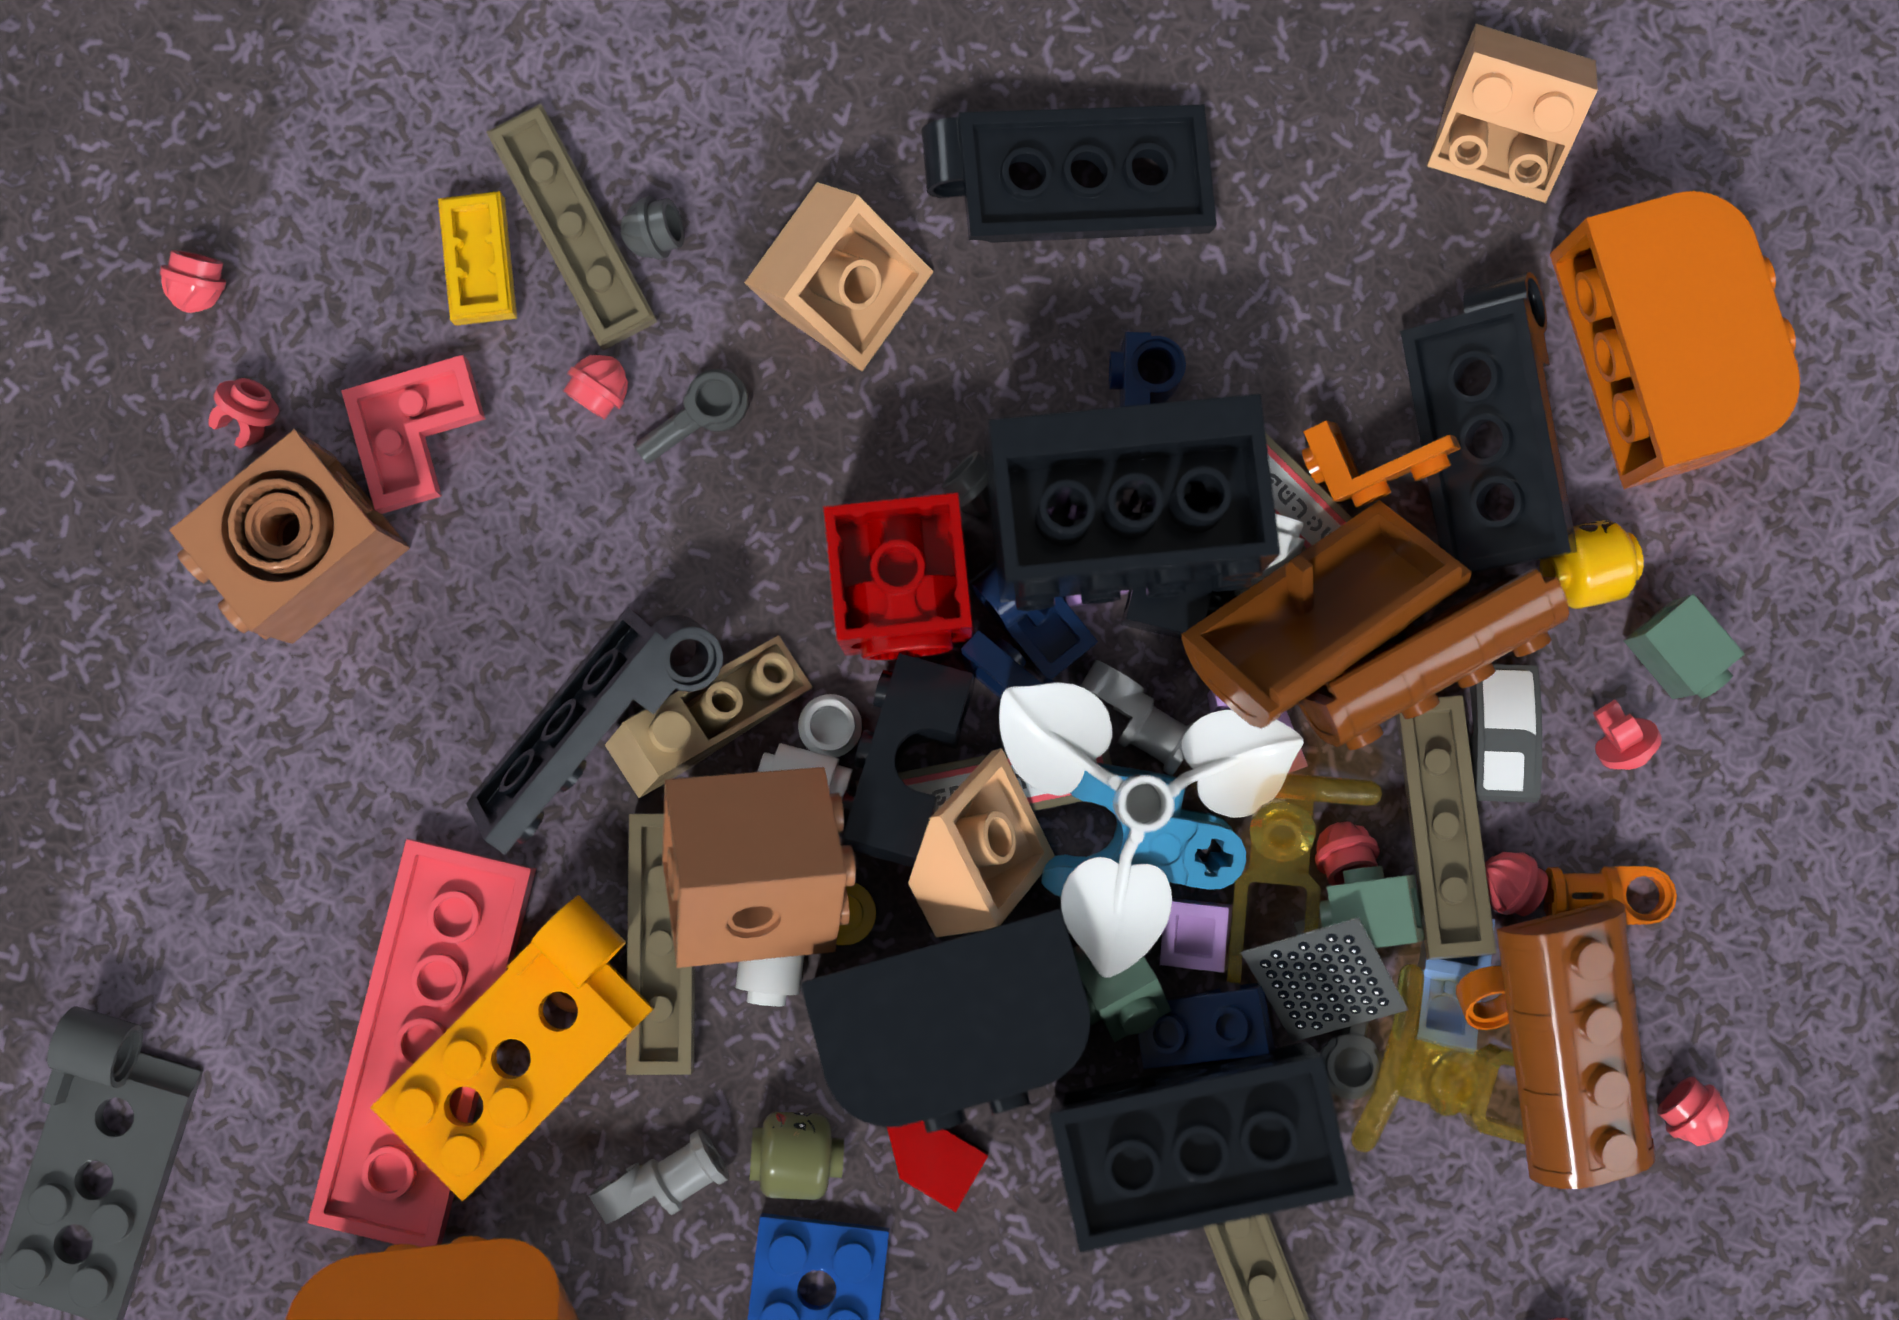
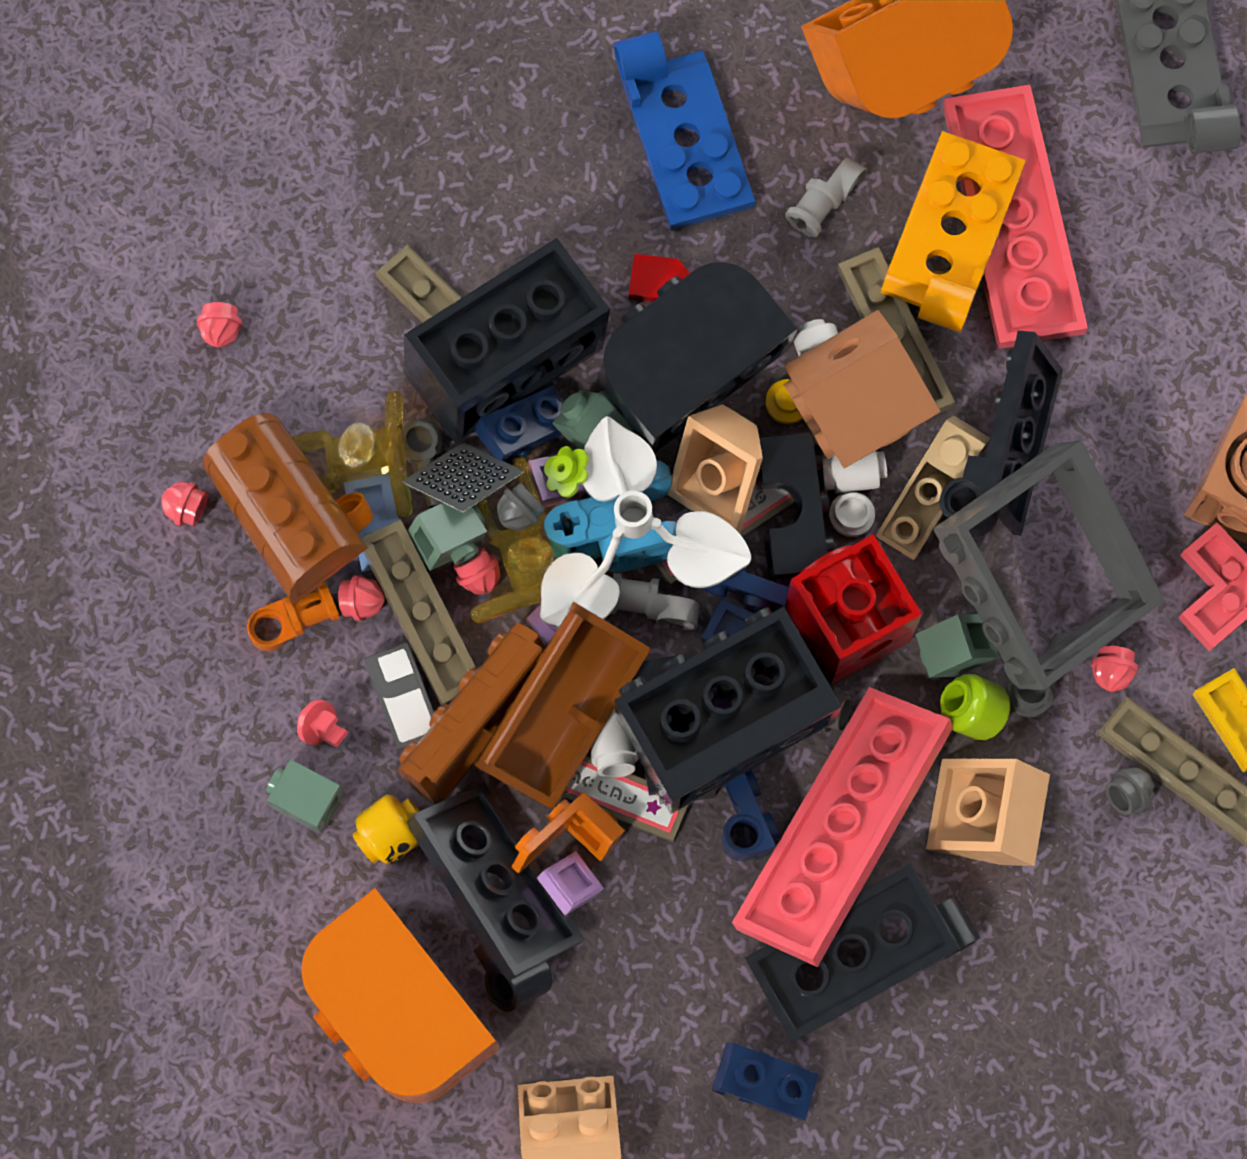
camera: 155 degrees right, 10 degrees down
(590, 432) = (1105, 532): none -> dark grey window
(781, 488) = (955, 646): none -> sand green brick
(795, 404) = (975, 706): none -> lime head
(795, 1155) = (750, 241): olive head -> none
(1029, 323) = (842, 826): none -> coral plate
(1183, 930) = (567, 471): none -> lime plant
(1256, 76) = (765, 1081): none -> dark blue plate
(1270, 901) = (518, 508): none -> dark grey plate
(1389, 406) = (570, 883): none -> lavender tile

